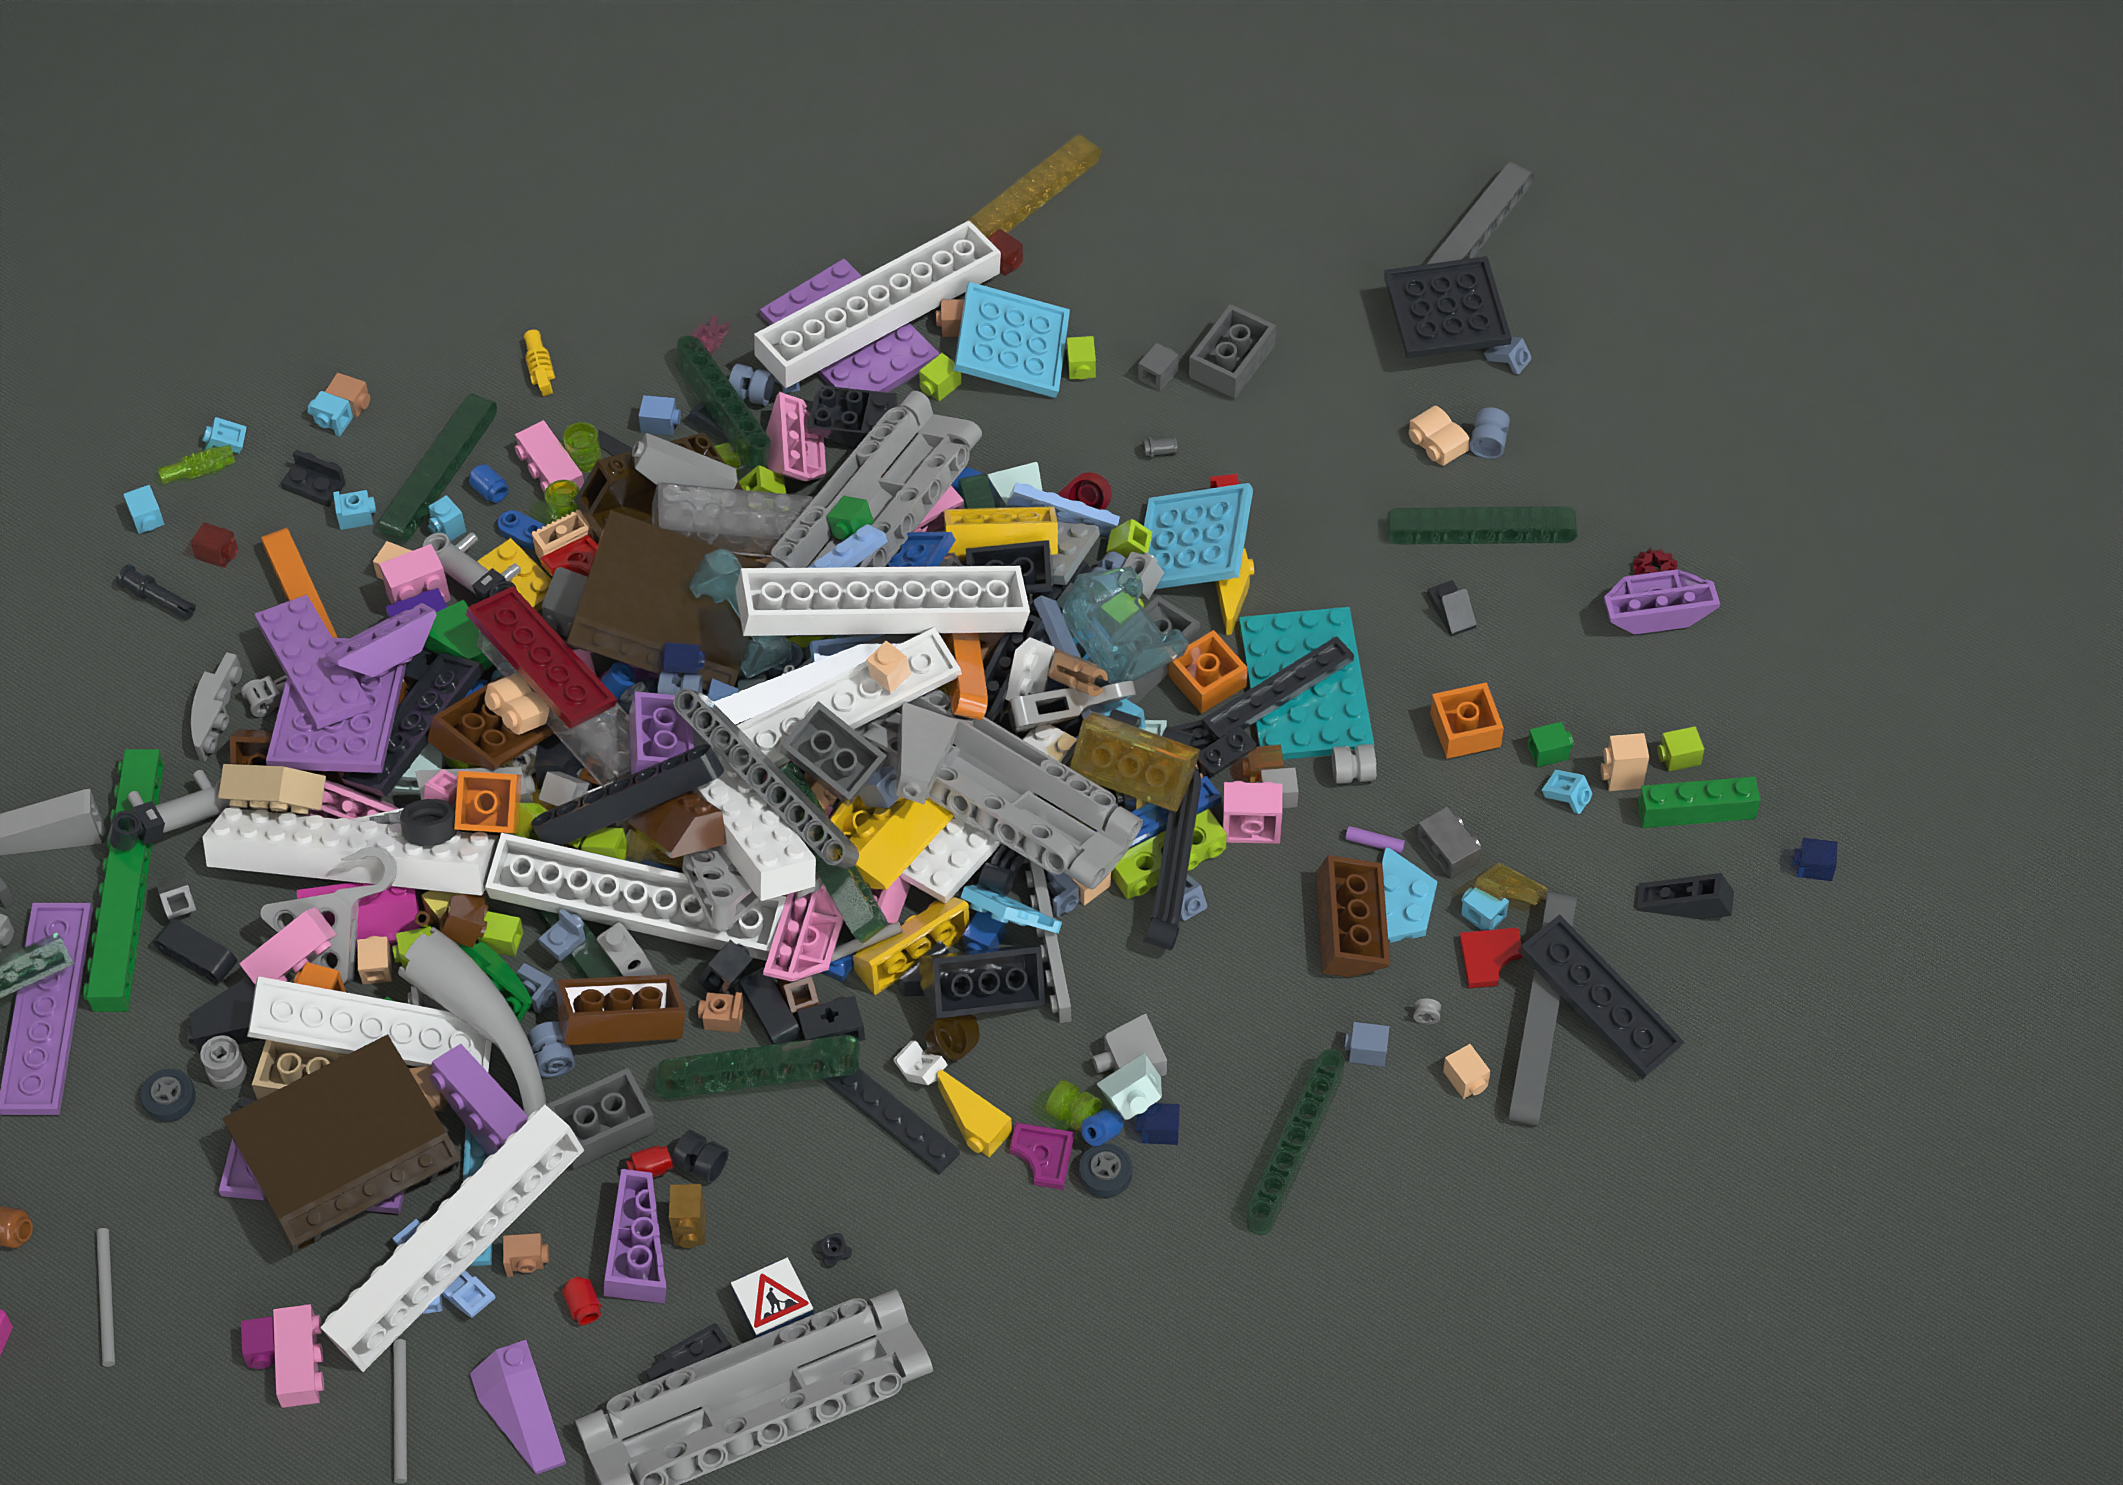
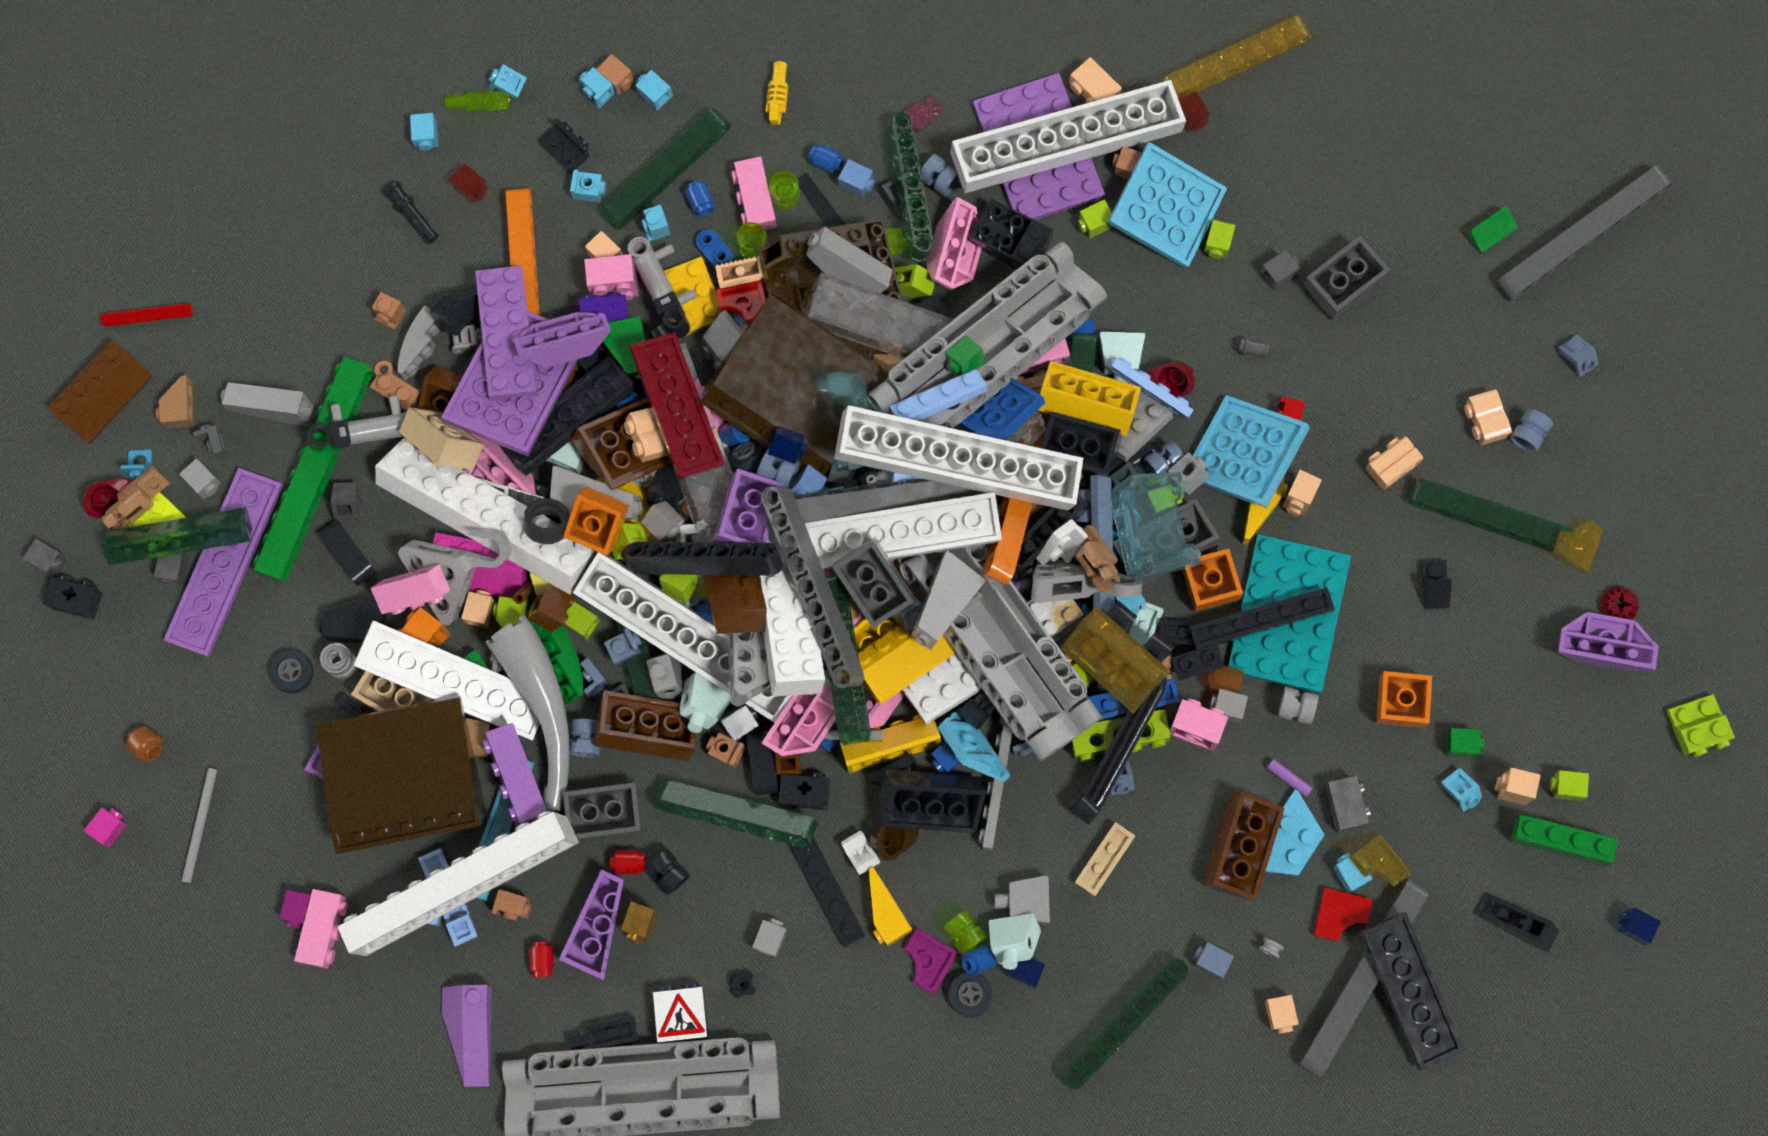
camera: 25 degrees right, 20 degrees up
(162, 693) = (388, 311): none -> nougat brick
(182, 769) = (390, 385): none -> nougat hinge
(244, 664) = (456, 309): none -> black slope
(397, 397) = (653, 90): none -> medium azure brick
(400, 1412) = (382, 999): light grey axle -> none
(442, 787) = (567, 490): bright pink slope -> none
(617, 406) = (826, 158): none -> blue brick
(677, 962) = (702, 702): none -> light aqua torso
(848, 1188) = (770, 937): none -> light grey brick
(880, 250) = (1093, 82): none -> light nougat brick
(888, 666) = (943, 520): light nougat brick -> none
(1129, 538) = (1193, 435): lime brick -> none
(1203, 984) = (1104, 859): none -> tan plate
(1270, 558) = (1301, 493): none -> light nougat brick
(1357, 506) = (1394, 462): none -> light nougat brick
(1367, 268) = (1493, 230): none -> green slope
(1447, 307) = (1542, 299): black plate -> none
(1587, 521) = (1579, 545): none -> clear yellow tile
(1792, 653) = (1700, 726): none -> lime plate

